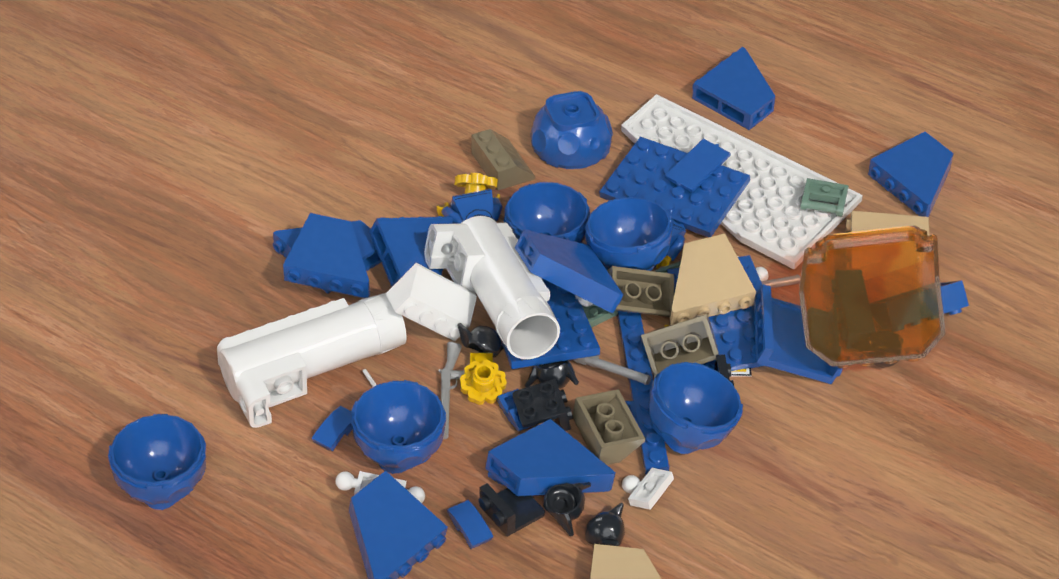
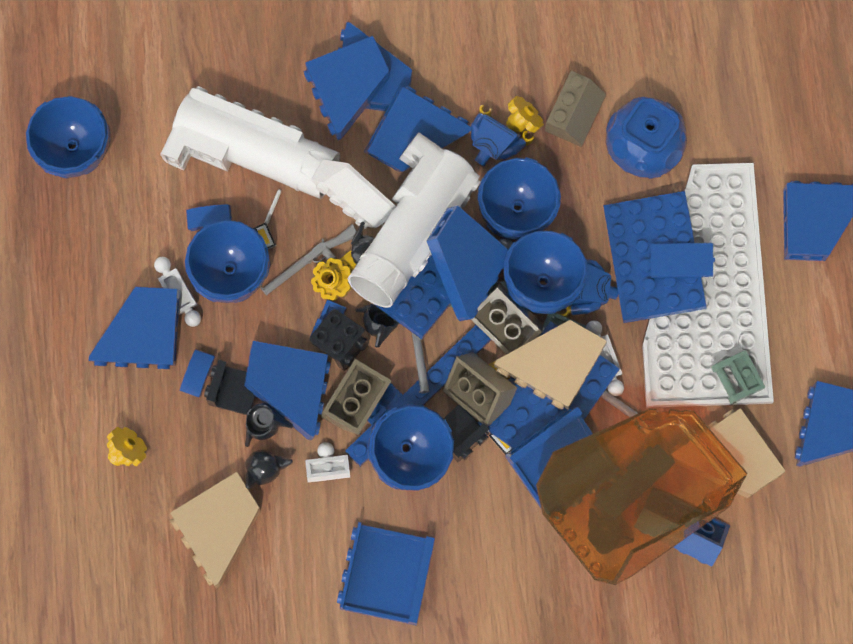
camera: 50 degrees right, 30 degrees up
(788, 509) = (386, 574): none -> blue panel

